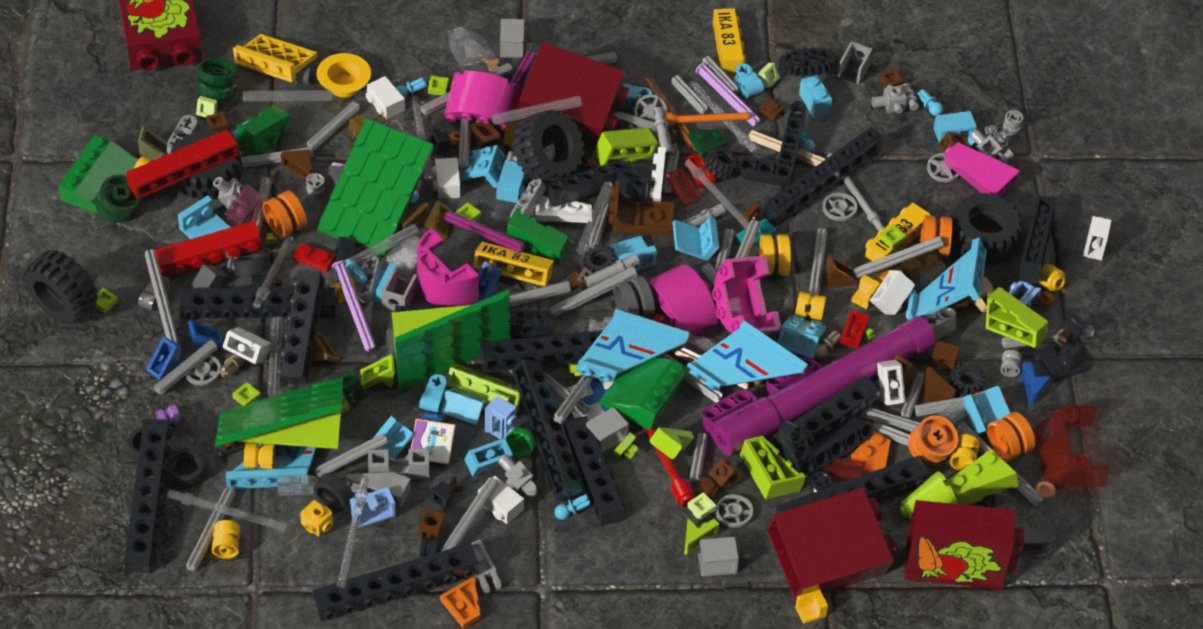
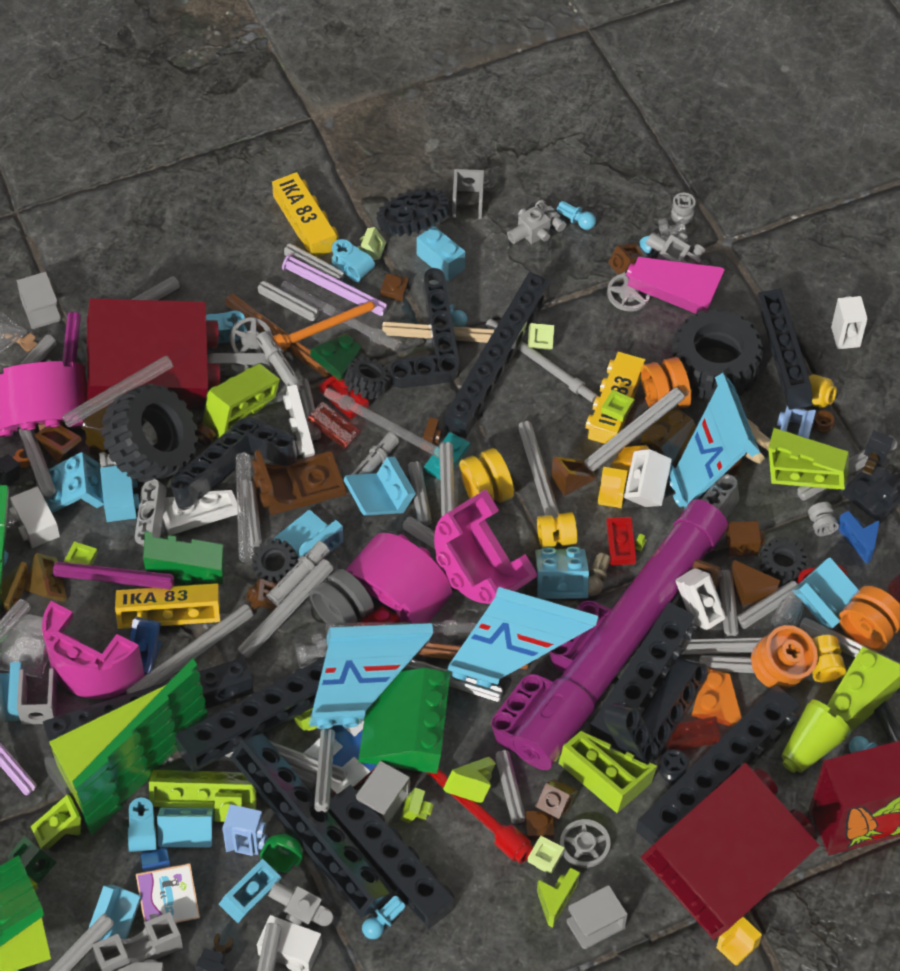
camera: 20 degrees left, 5 degrees up
(839, 207) = (530, 385): light grey wheel -> none
(861, 175) = (540, 336): none -> yellowish green tile
(891, 78) = (518, 199): reddish brown plate -> none
(956, 122) = (621, 231): medium azure brick -> none

